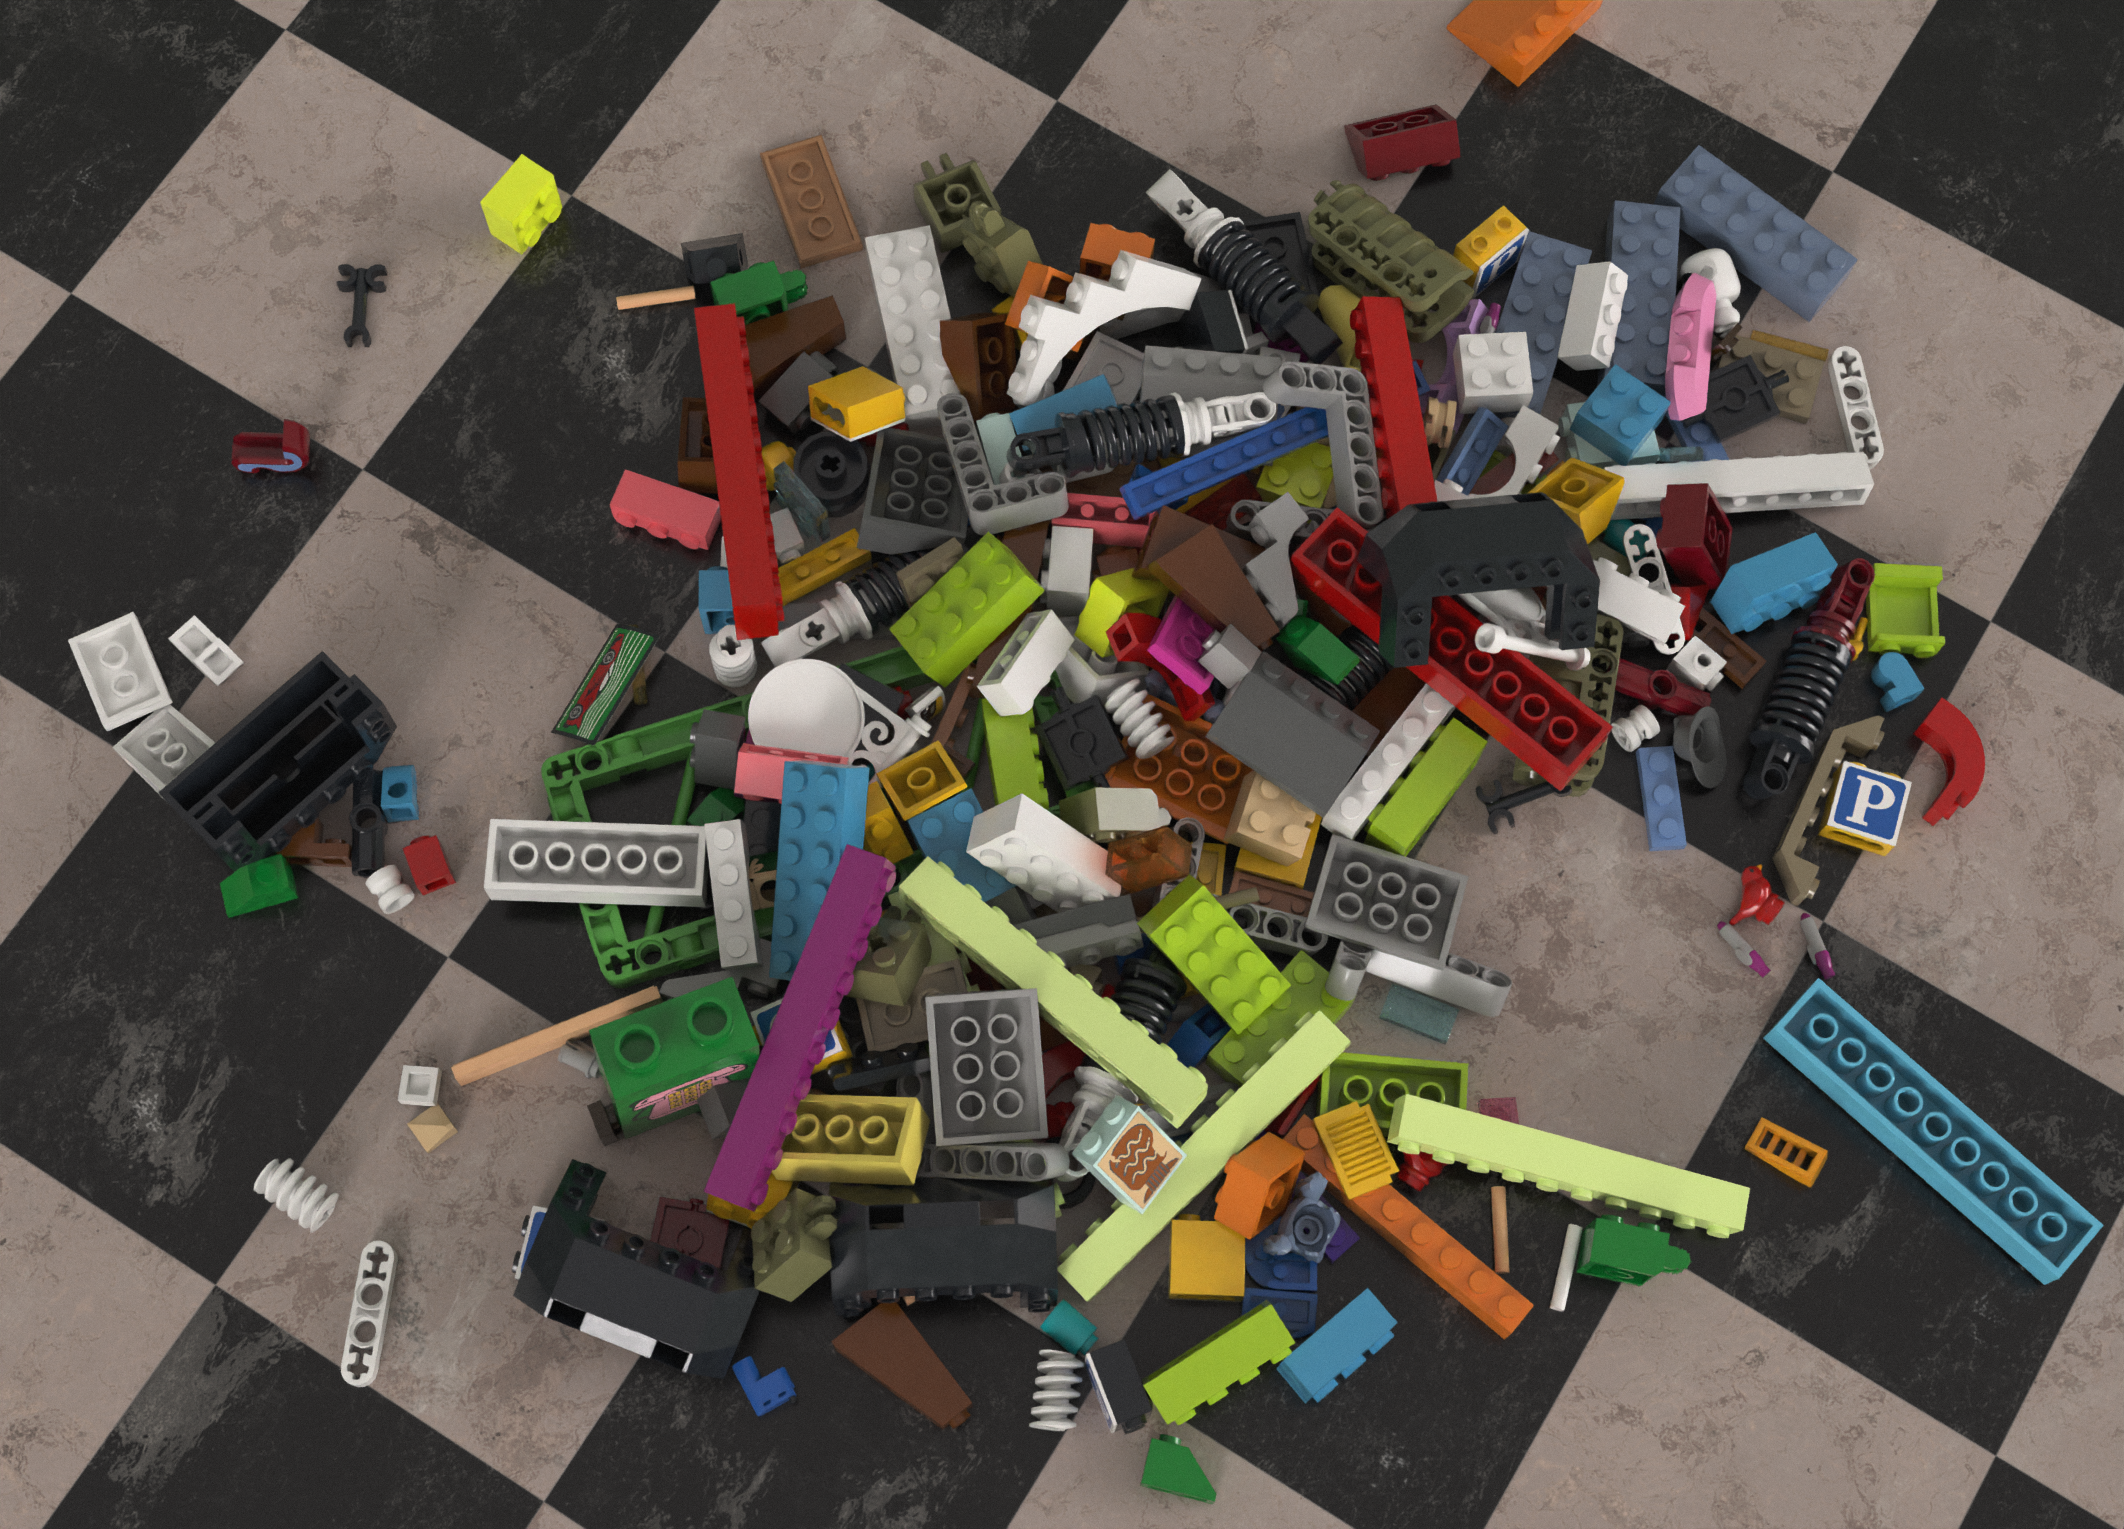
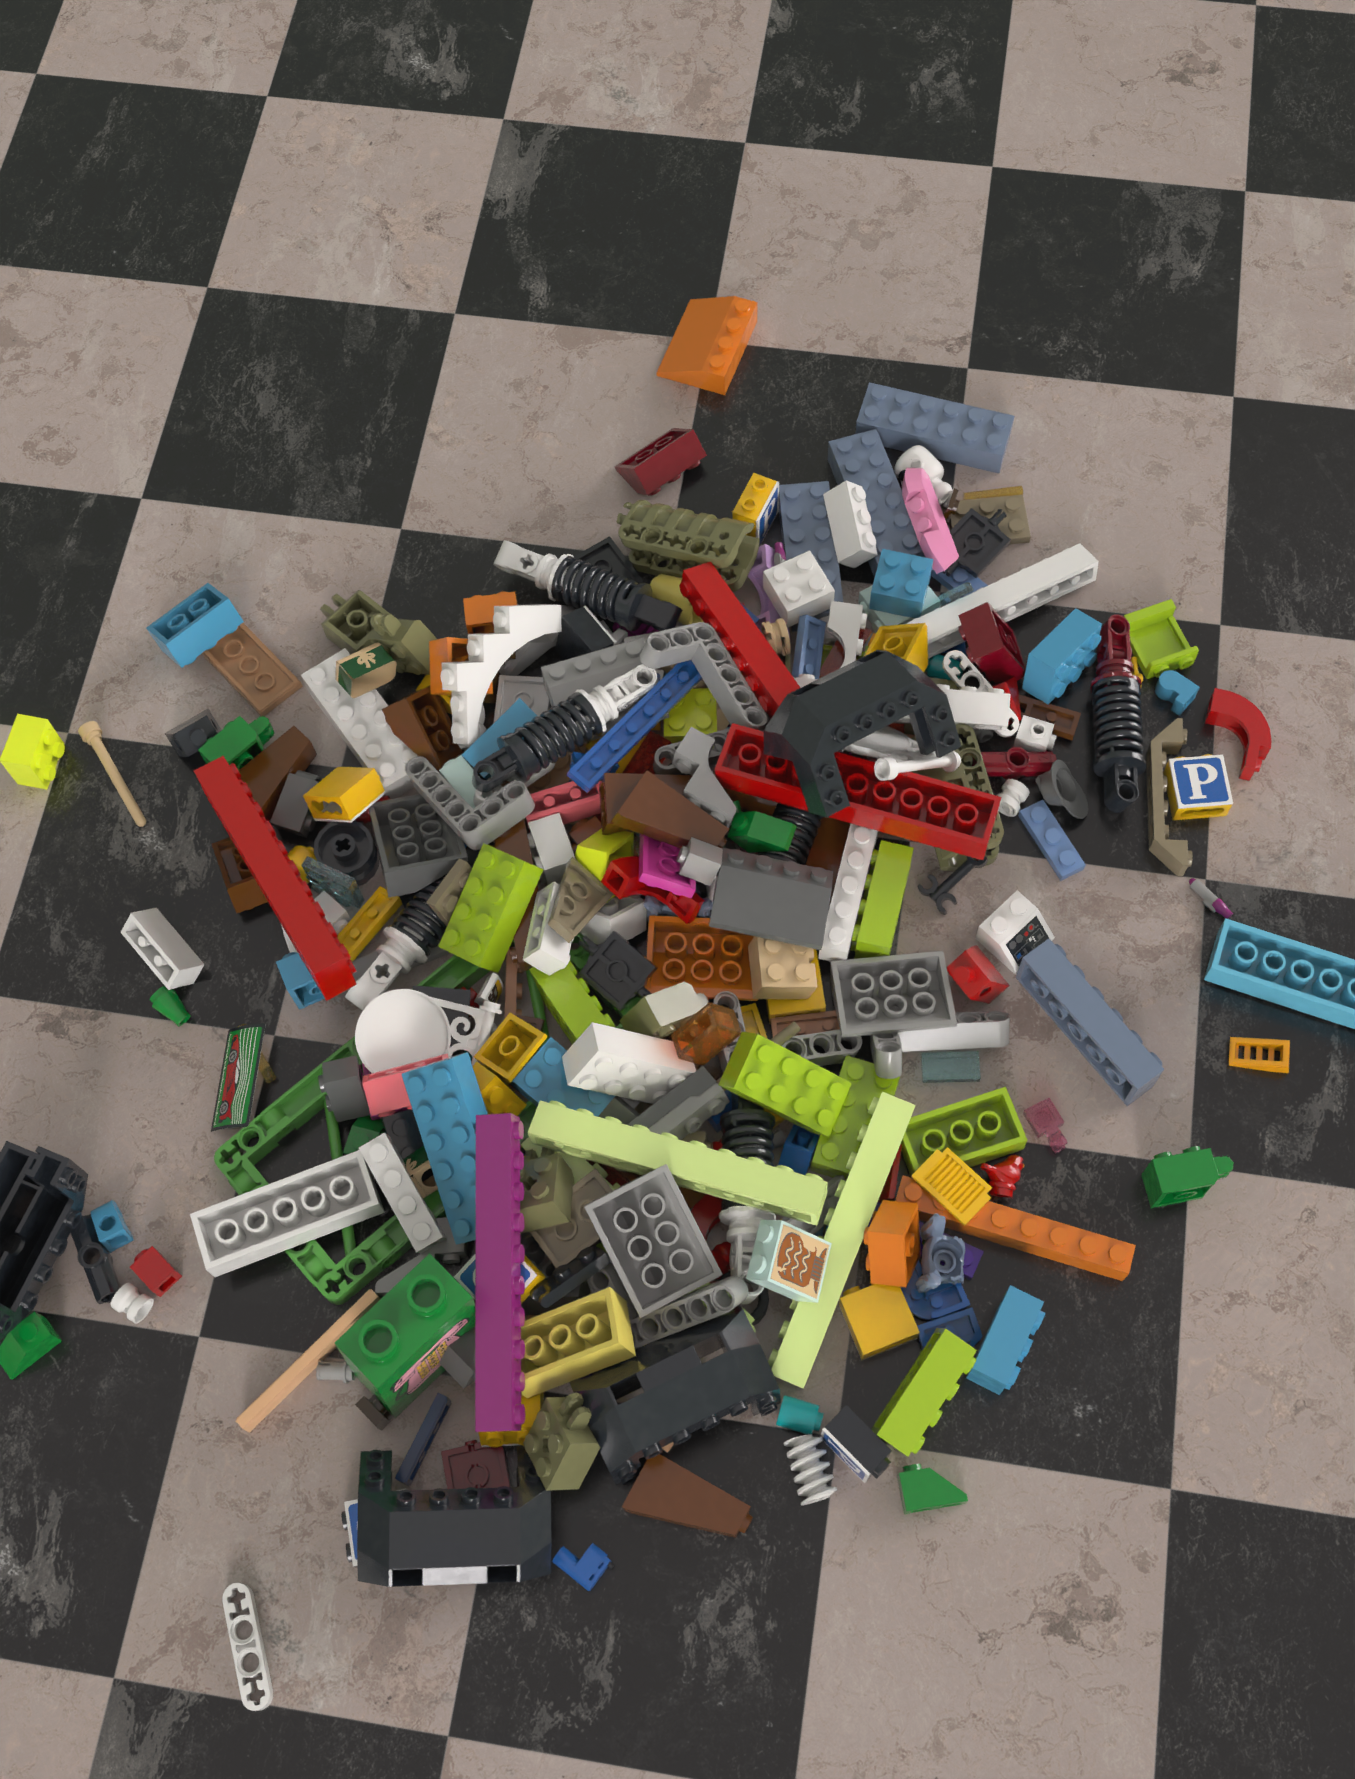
camera: 15 degrees left, 5 degrees down
(296, 1195) = (150, 1577): white piece -> none
(308, 850) = (56, 1299): reddish brown slope -> none
(419, 1085) = (216, 1446): white plate -> none
(432, 1128) = (239, 1475): tan slope -> none
(561, 567) = (170, 1005): none -> green cone
(578, 499) = (162, 948): none -> white brick
(597, 209) = (92, 734): none -> tan piece
(646, 1175) = (423, 1439): none -> dark blue tile
(655, 297) = (161, 780): light nougat piece -> none
(665, 510) = (232, 930): coral brick -> none
(732, 659) = (328, 1017): white piece -> none
(767, 125) = (195, 625): none -> dark azure brick
(941, 264) = (365, 670): none -> piece
(1068, 642) = (577, 900): none -> dark tan wing
(1137, 721) = (652, 937): white piece -> none
(1494, 918) = (974, 973): none -> red torso
(1500, 1230) = (1082, 1200): light nougat piece -> none
(1565, 890) = (1013, 931): none -> white slope
(1566, 1267) = (1143, 1208): white piece -> none
(1568, 1165) = (1111, 1130): yellowish green brick -> none
(1601, 1030) = (1089, 1022): none -> sand blue brick
(1742, 949) = (1159, 922): light grey piece -> none
(1757, 898) = (1152, 881): red animal -> none
(1860, 407) = (1054, 519): white beam -> none

